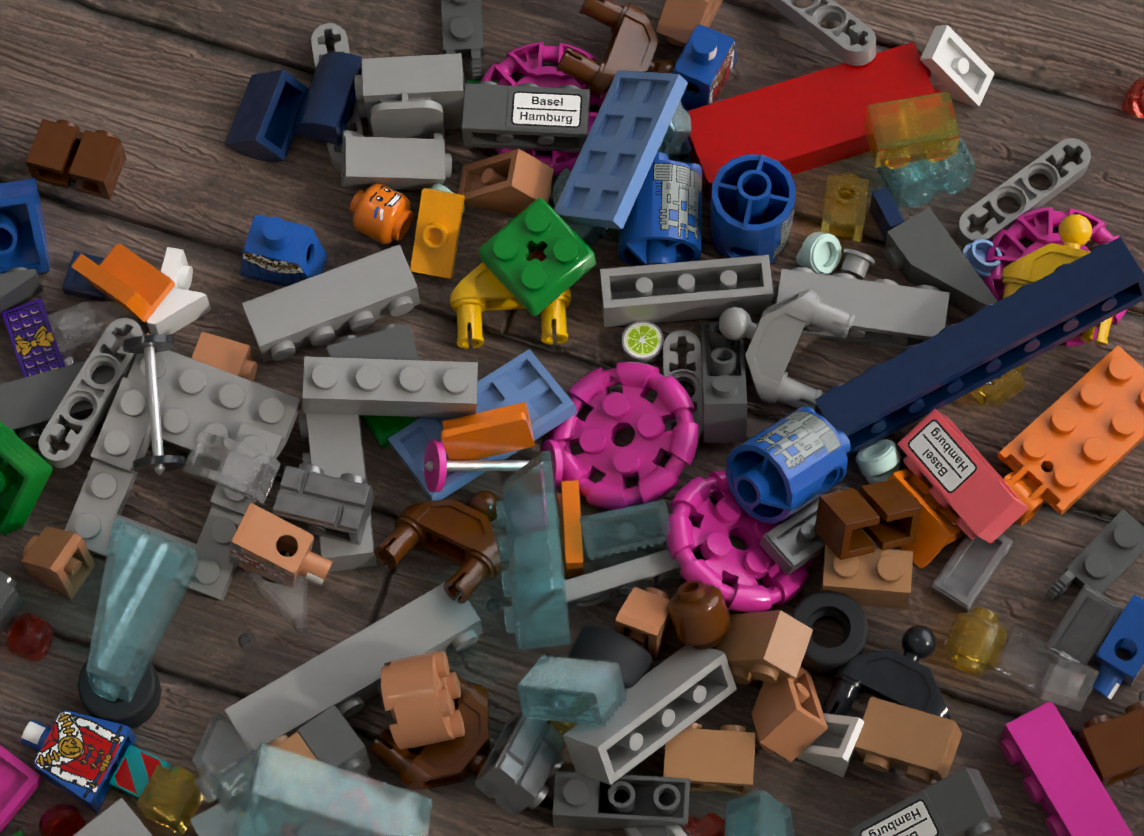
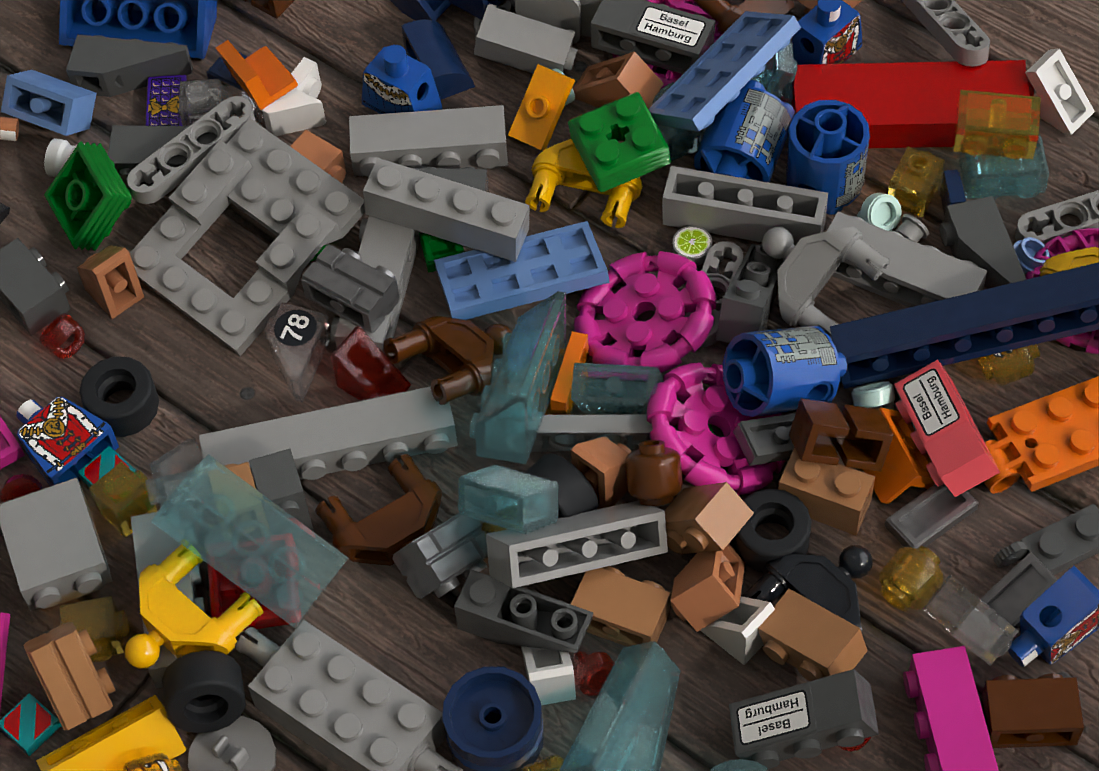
camera: 20 degrees right, 10 degrees down
(136, 603) = (154, 327): clear light blue slope -> none
(148, 346) = (248, 116): axle -> none
(232, 466) = (284, 233): clear slope -> none
(262, 539) = (291, 307): nougat torso -> none
(302, 201) = (430, 45): none -> dark blue brick
(367, 584) = (364, 369): none -> clear red slope
(381, 213) = (499, 81): orange head -> none
(422, 700) = (371, 471): nougat brick -> none
(437, 465) = (462, 283): dark pink axle -> none
(488, 433) = (518, 272): orange panel -> none

